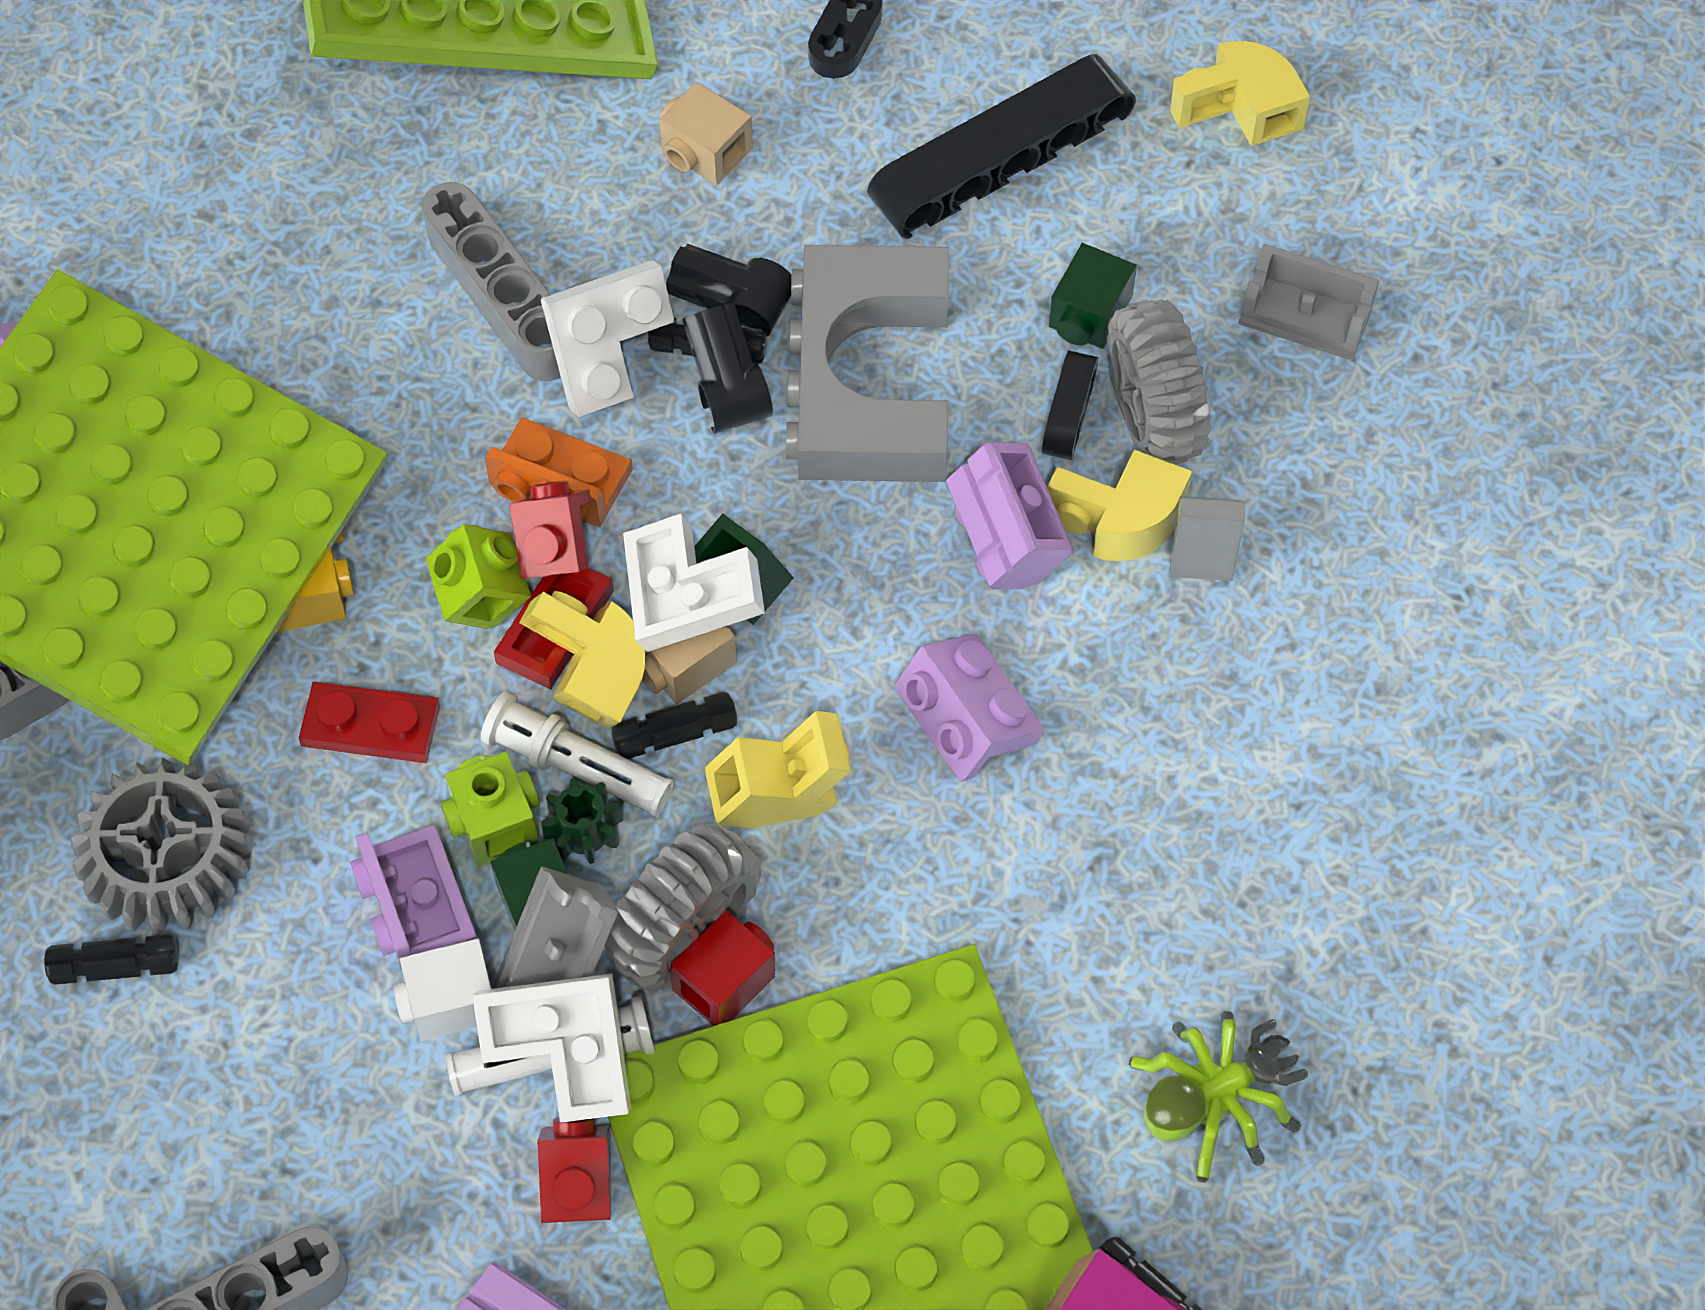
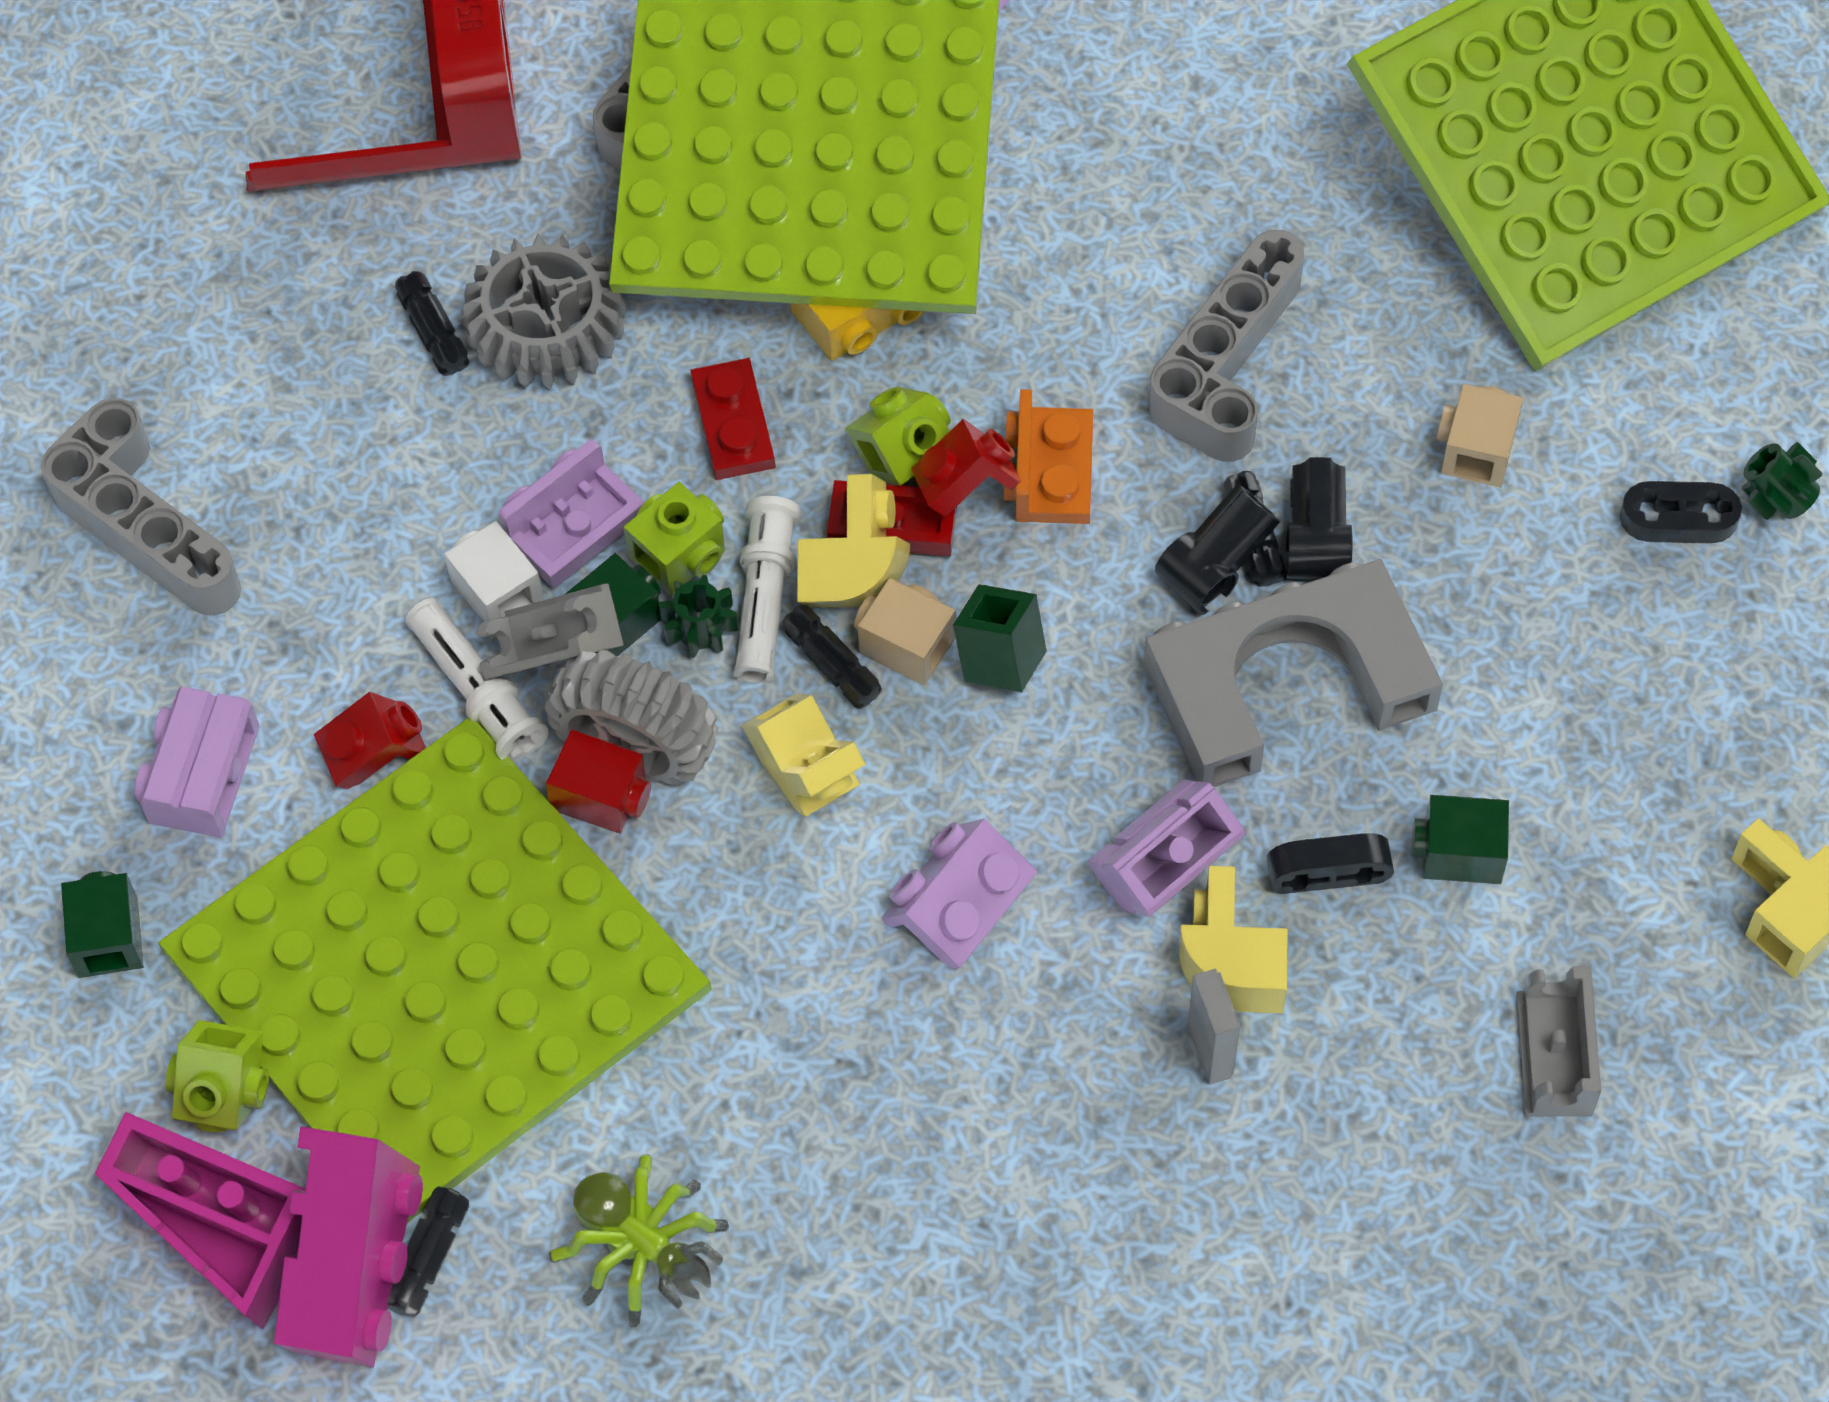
camera: 70 degrees right, 0 degrees up
(571, 1023) = (473, 670): white plate -> none
(588, 330) = (1192, 415): white plate -> none
(681, 598) = (930, 587): white plate -> none
(999, 143) = (1612, 696): black beam -> none
(1159, 380) = (1374, 923): light grey gear -> none

